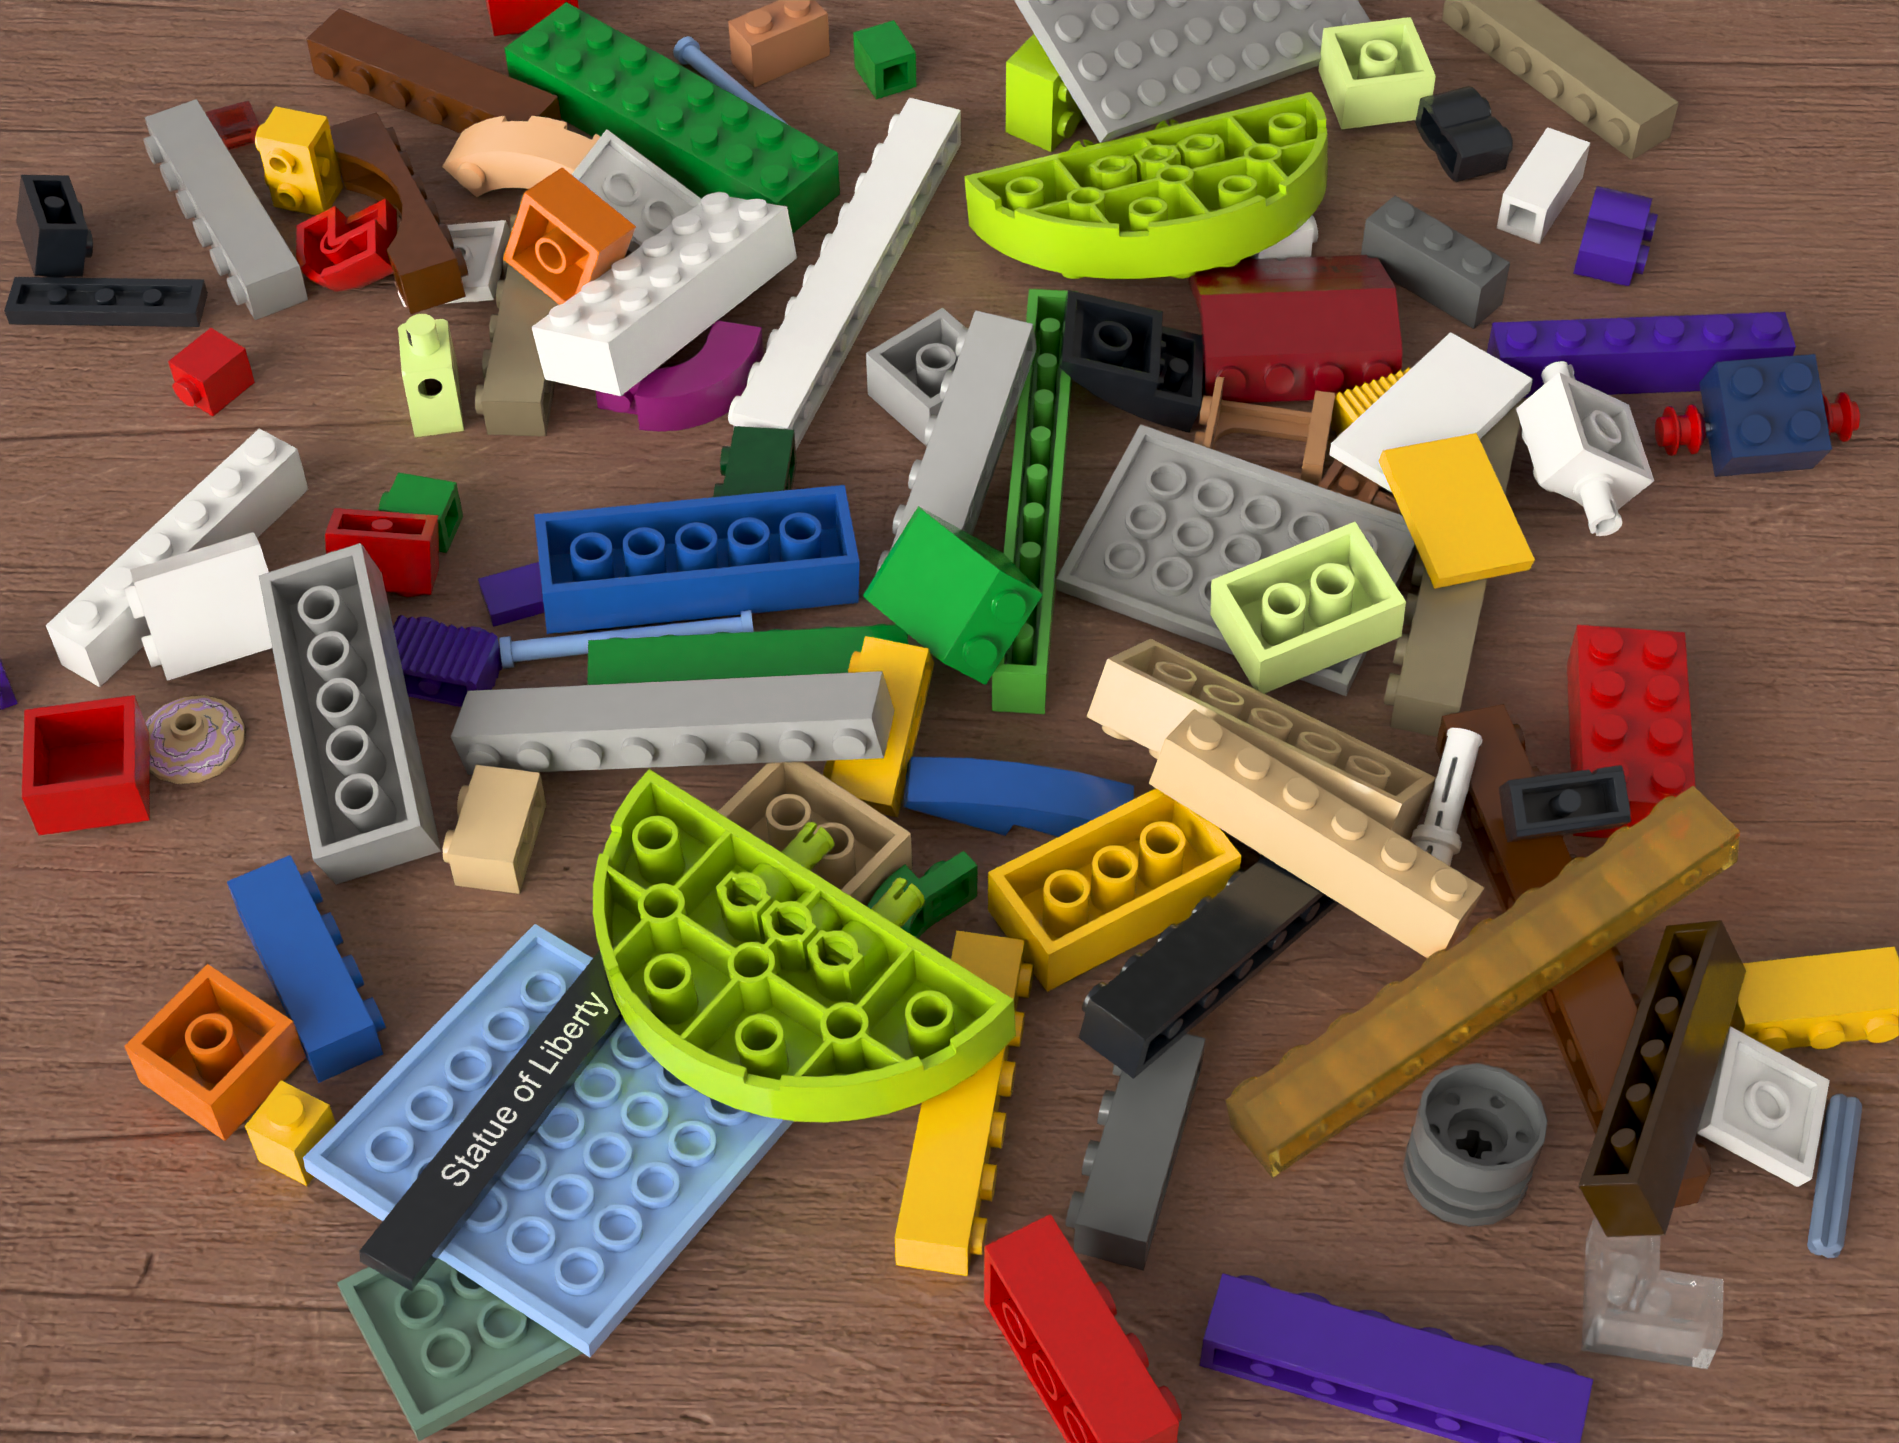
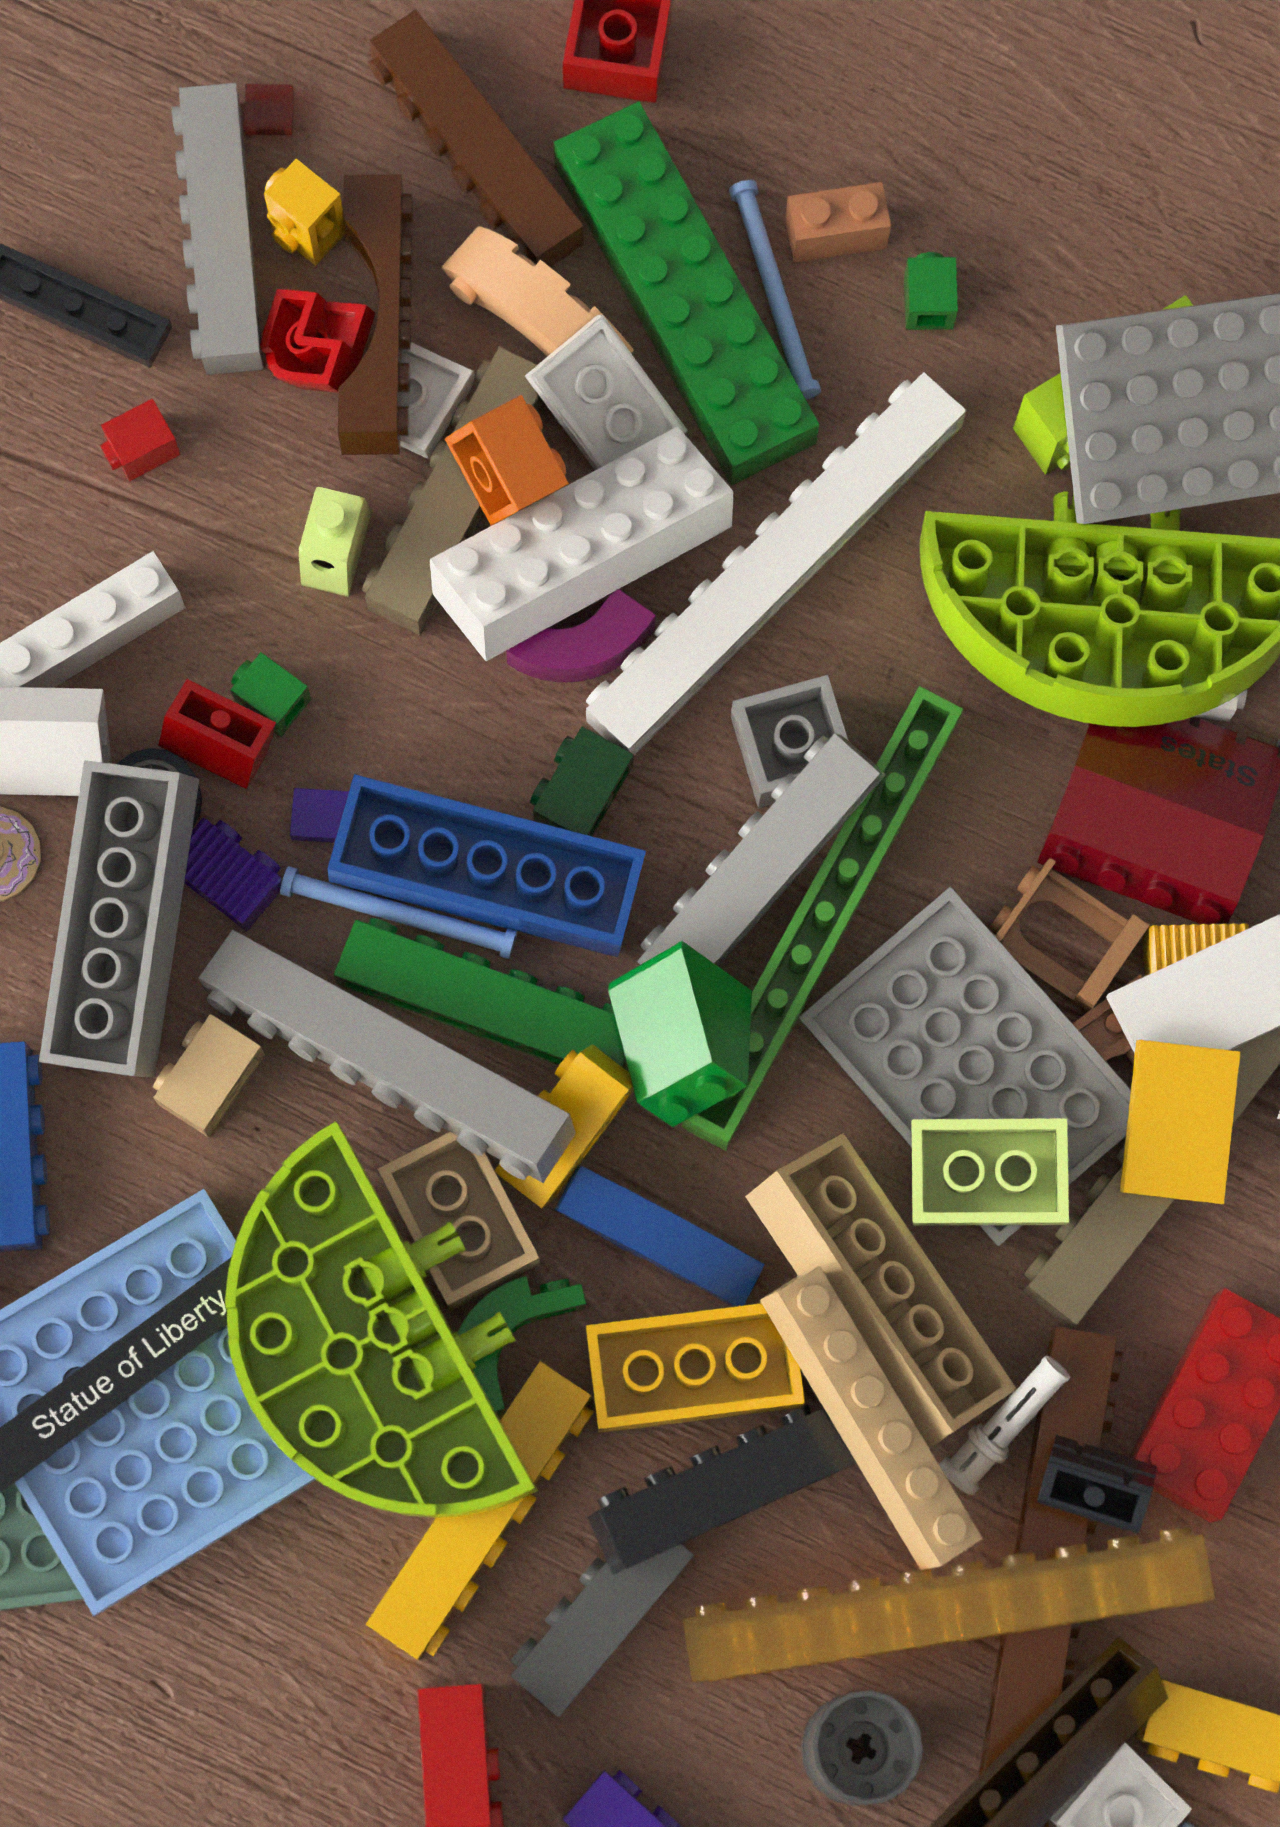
camera: 20 degrees right, 25 degrees up
(53, 226) = (51, 195): black brick -> none
(1133, 359) = (981, 802): black slope -> none

